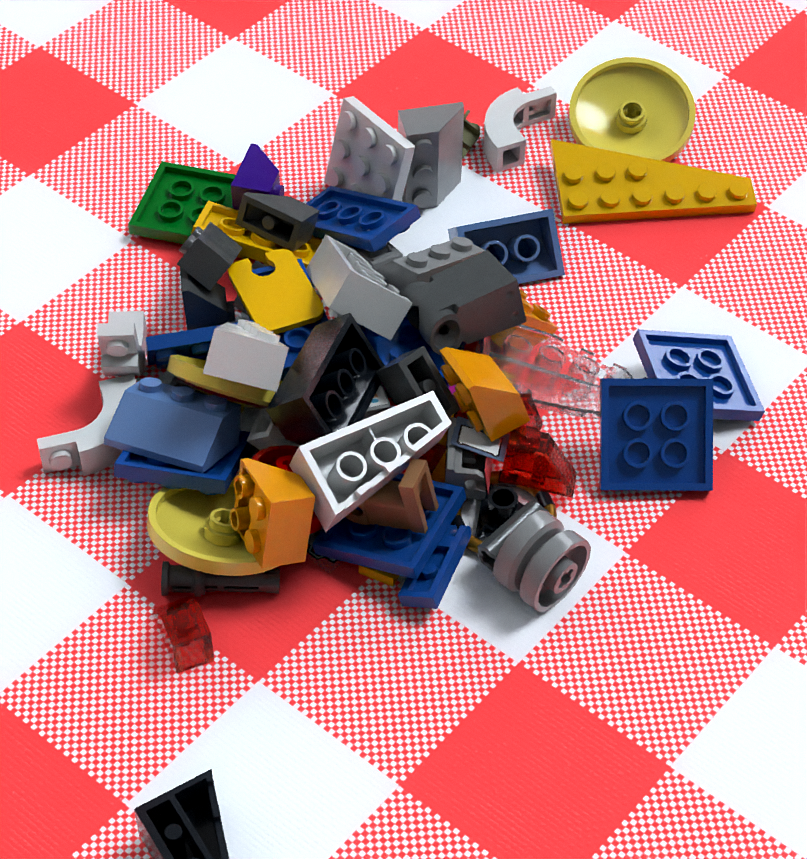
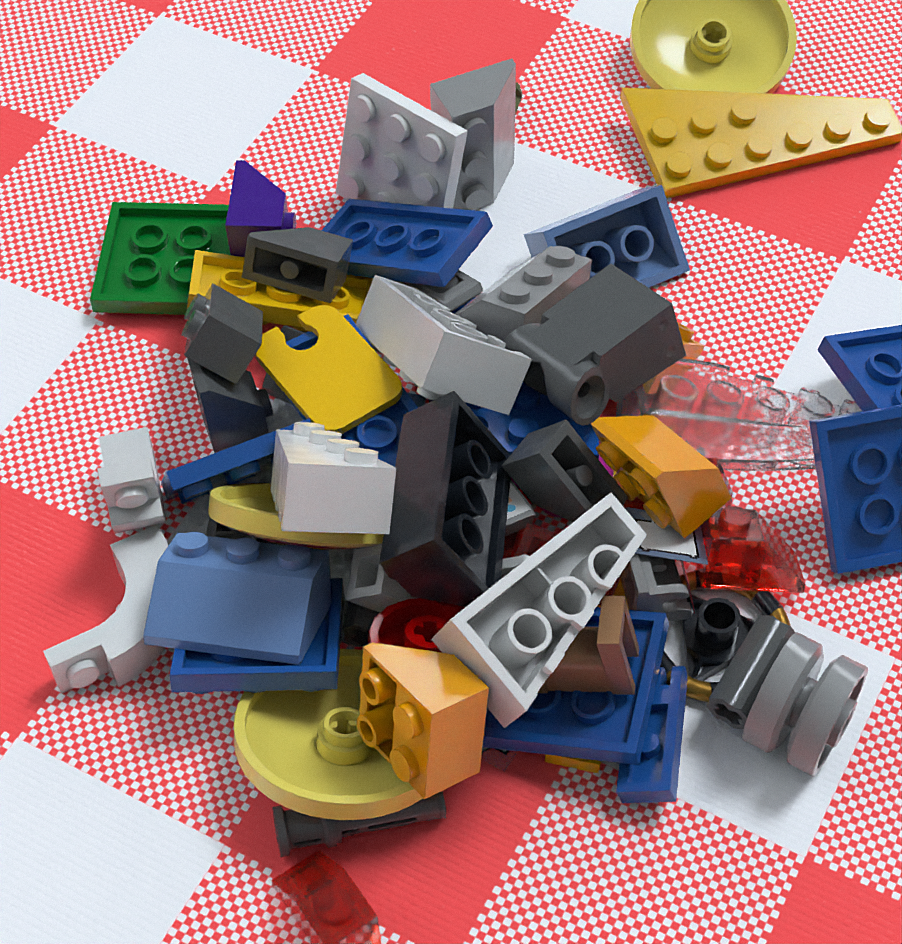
camera: 10 degrees left, 5 degrees up
(506, 116) = (553, 97): white arch -> none

